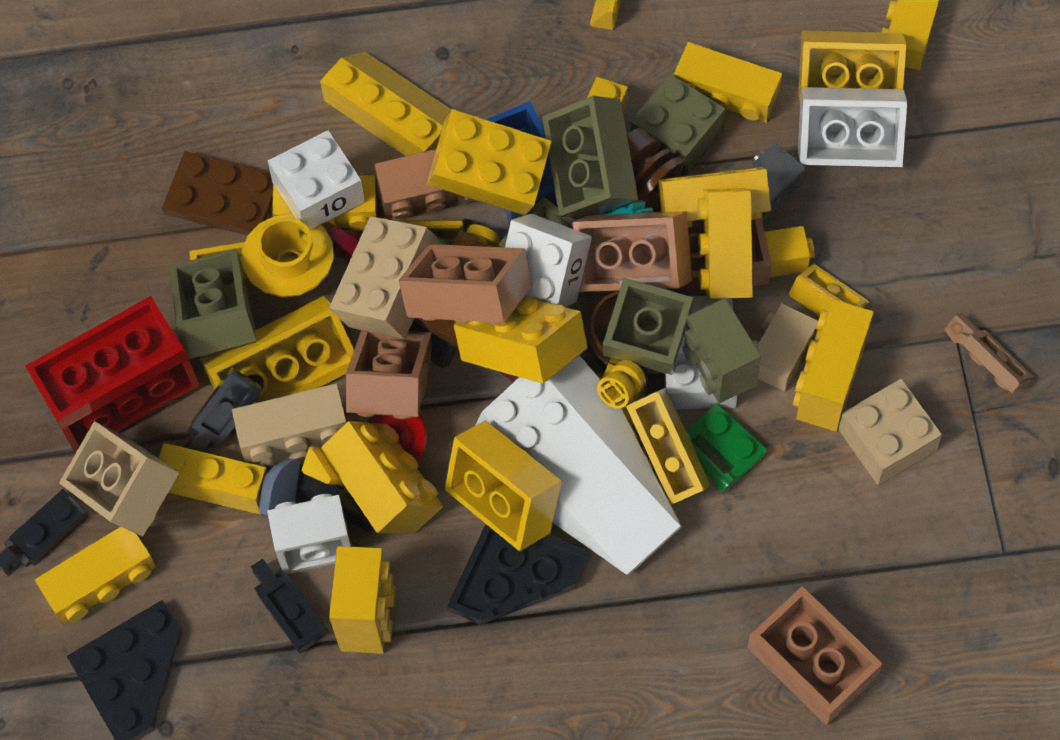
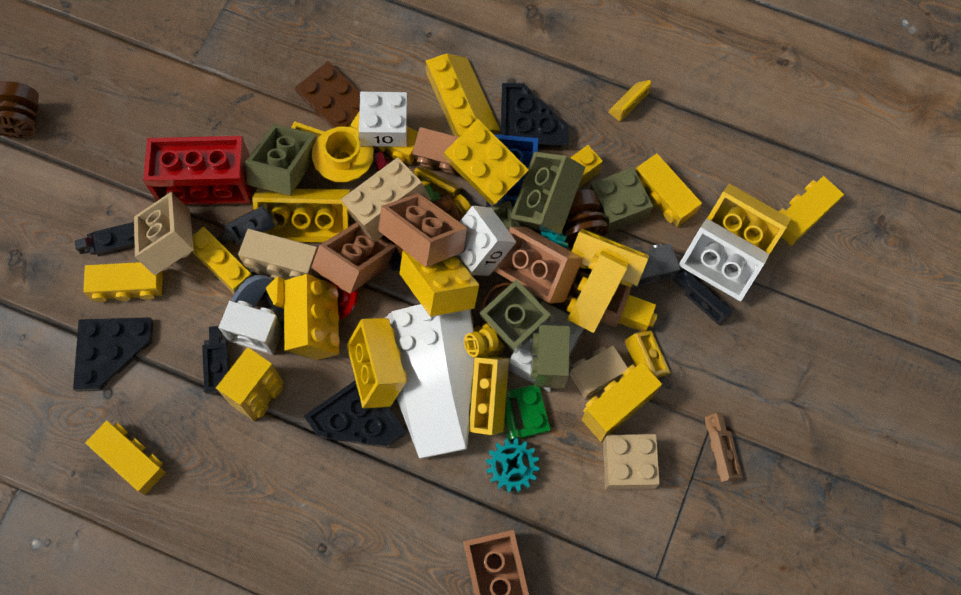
camera: 25 degrees right, 5 degrees up
(498, 82) = (531, 117): none -> black plate
(734, 518) = (522, 471): none -> teal gear
(852, 188) = (702, 297): none -> black hinge

